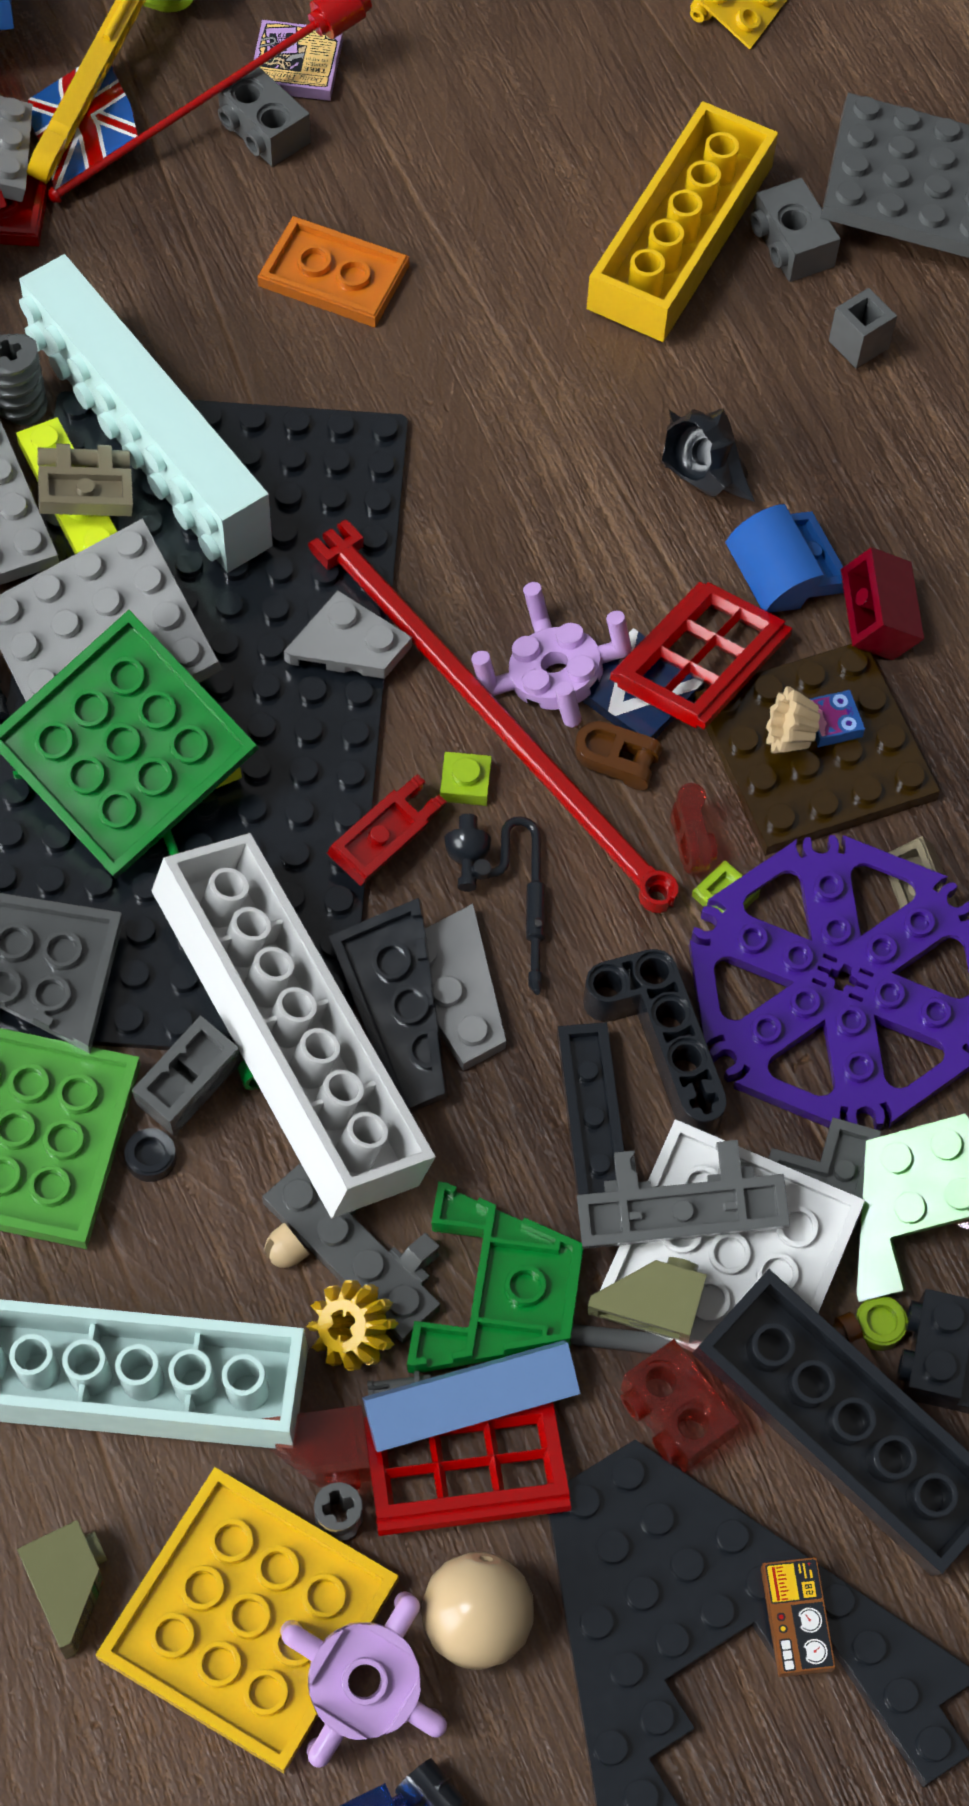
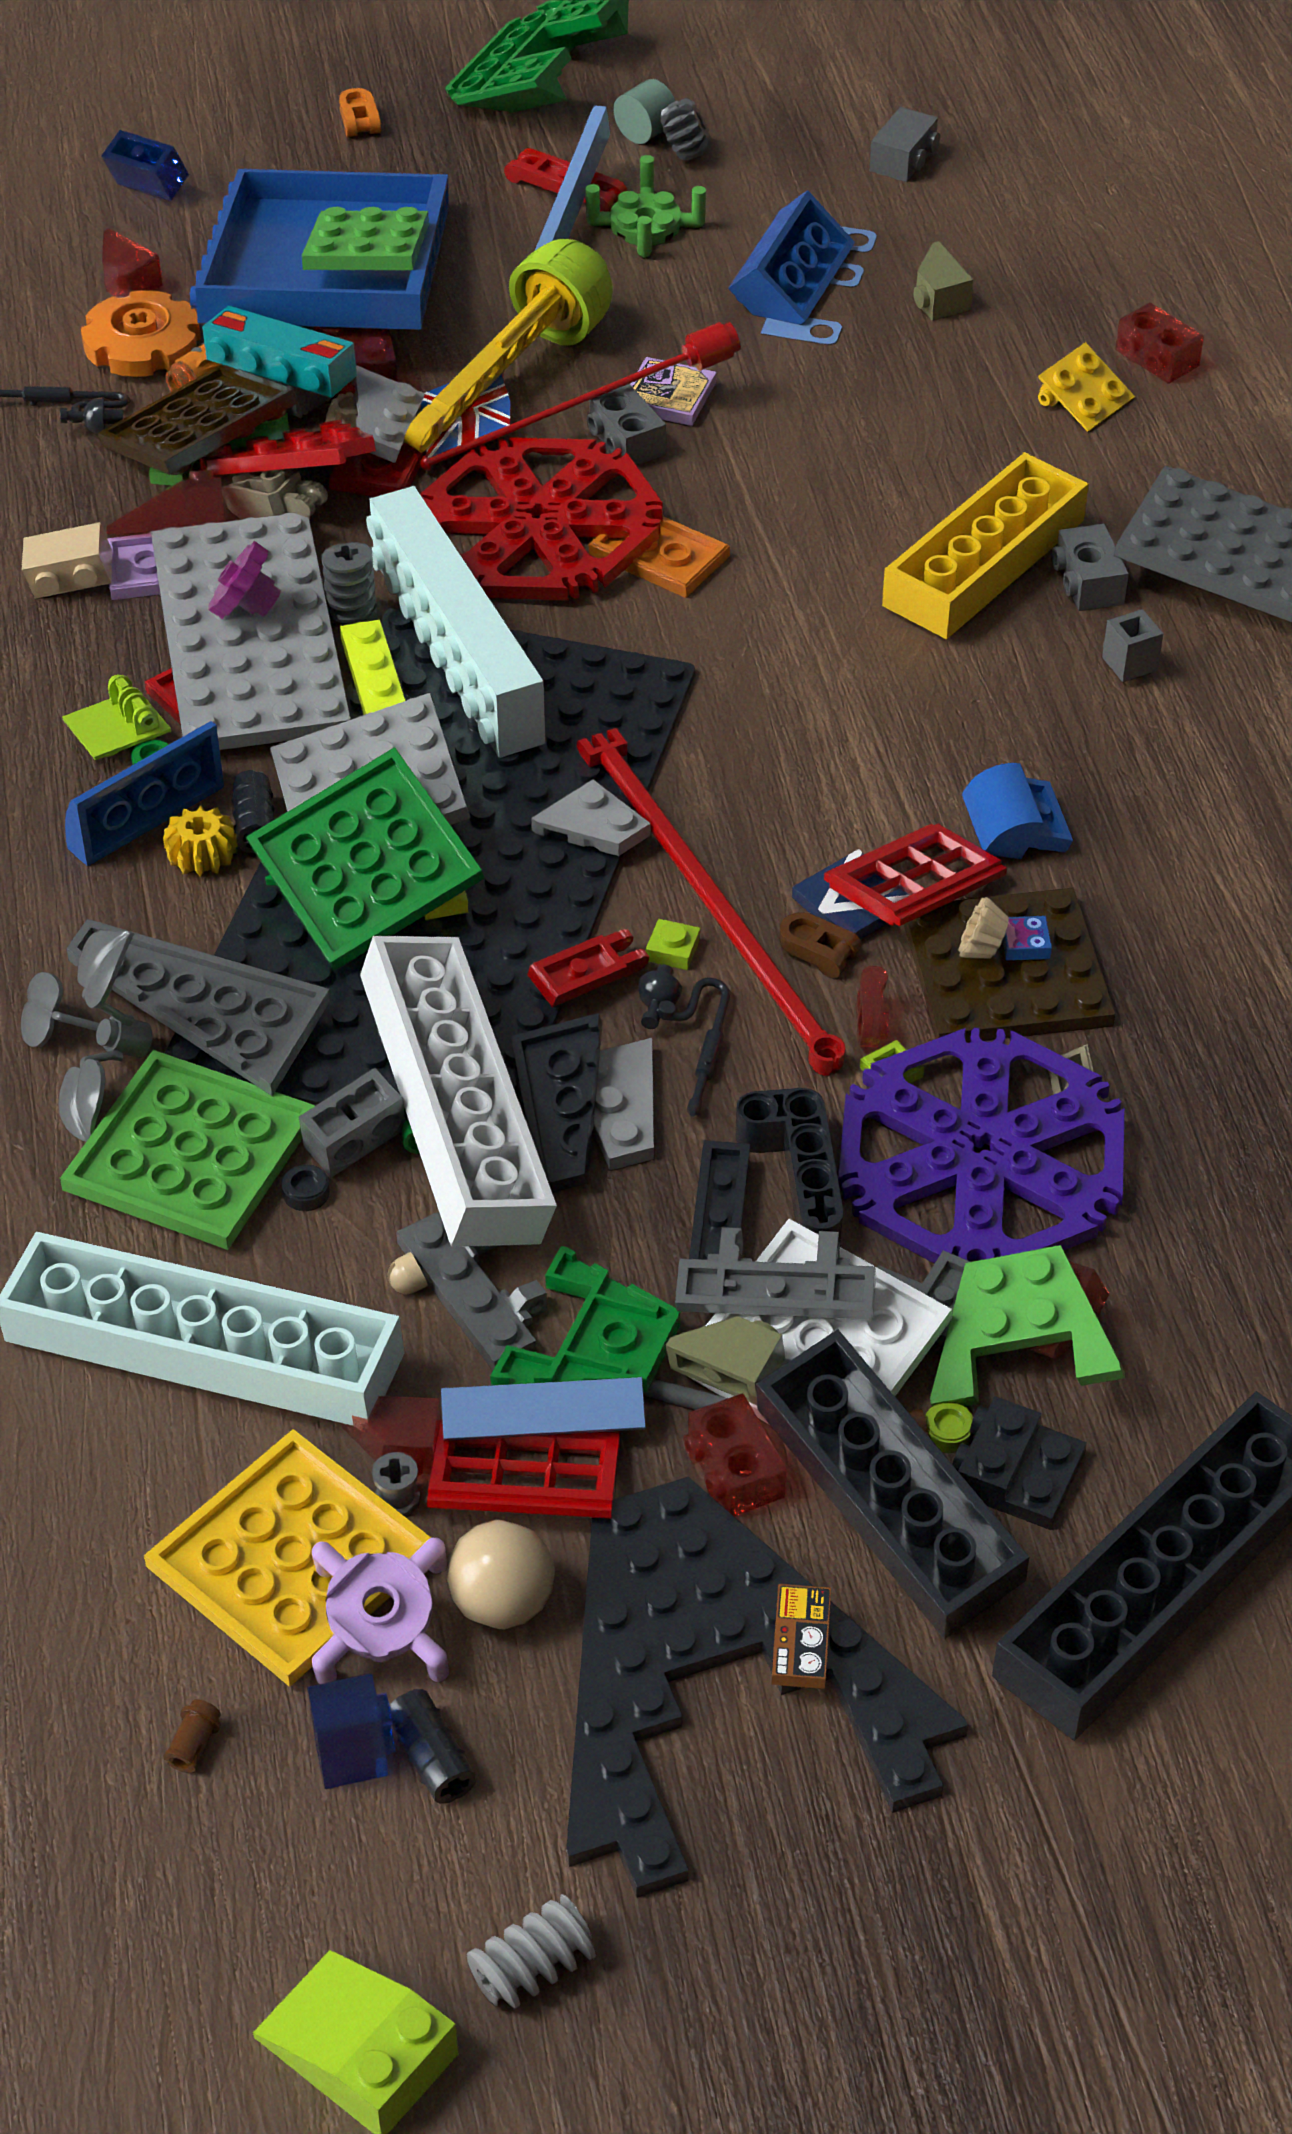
camera: 15 degrees right, 15 degrees down
(66, 1580) = (135, 1495): olive slope -> none
(84, 481) = (387, 663): dark tan plate -> none
(222, 250) = (563, 515): none -> red plate
(366, 1334) = (449, 1338): yellow gear -> none
(553, 646) = (779, 865): lavender plate -> none
(705, 453) = (959, 721): black hair -> none
(882, 604) = (1095, 858): dark red brick -> none

